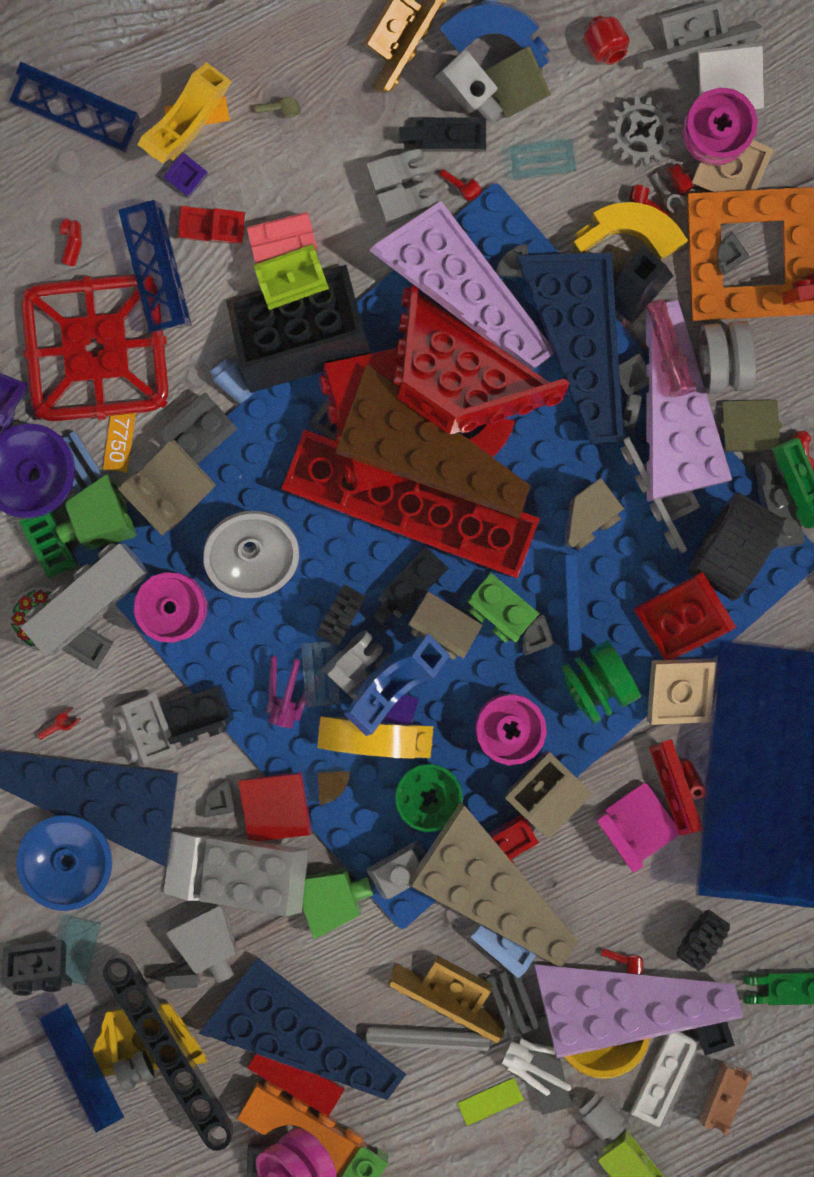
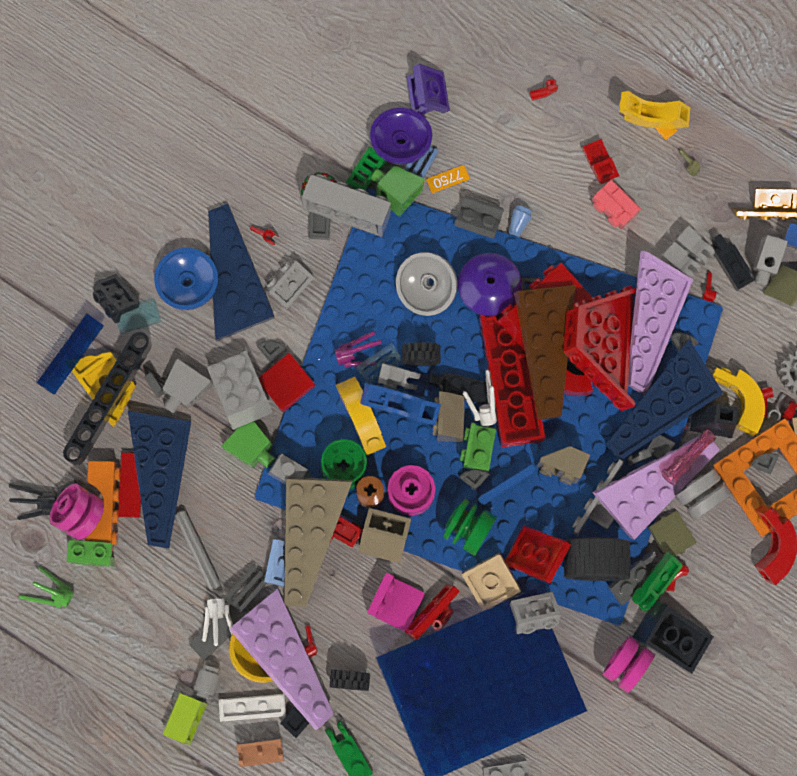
camera: 55 degrees right, 10 degrees down
(78, 96) = (628, 51): clear blue fence -> none
(80, 363) = (490, 149): red plate -> none
(134, 1070) = (85, 384): dark grey wheel -> none
(167, 265) = (561, 150): clear blue fence -> none
(167, 487) = (437, 216): dark tan bracket -> none
(185, 175) = (620, 132): dark purple tile -> none
(185, 866) = (221, 349): white panel -> none
(189, 602) = (369, 243): dark pink wheel -> none
(197, 714) = (316, 307): black bracket -> none
(290, 276) = (598, 219): lime hinge -> none
(297, 336) = (571, 238): black slope -> none
(298, 497) = (485, 297): none -> dark purple dish
(332, 785) = (317, 407): clear orange tile -> none
(403, 710) = (386, 421): dark purple tile -> none
(451, 993) = (233, 548): pearl gold bracket -> none
(462, 572) = (487, 412): none -> white plant
(484, 796) = (363, 487): none -> dark orange piece
(490, 1101) = (179, 610): lime sticker -> none
(540, 147) = (758, 321): clear light blue tile -> none
(755, 661) = (535, 613): none -> light grey bracket

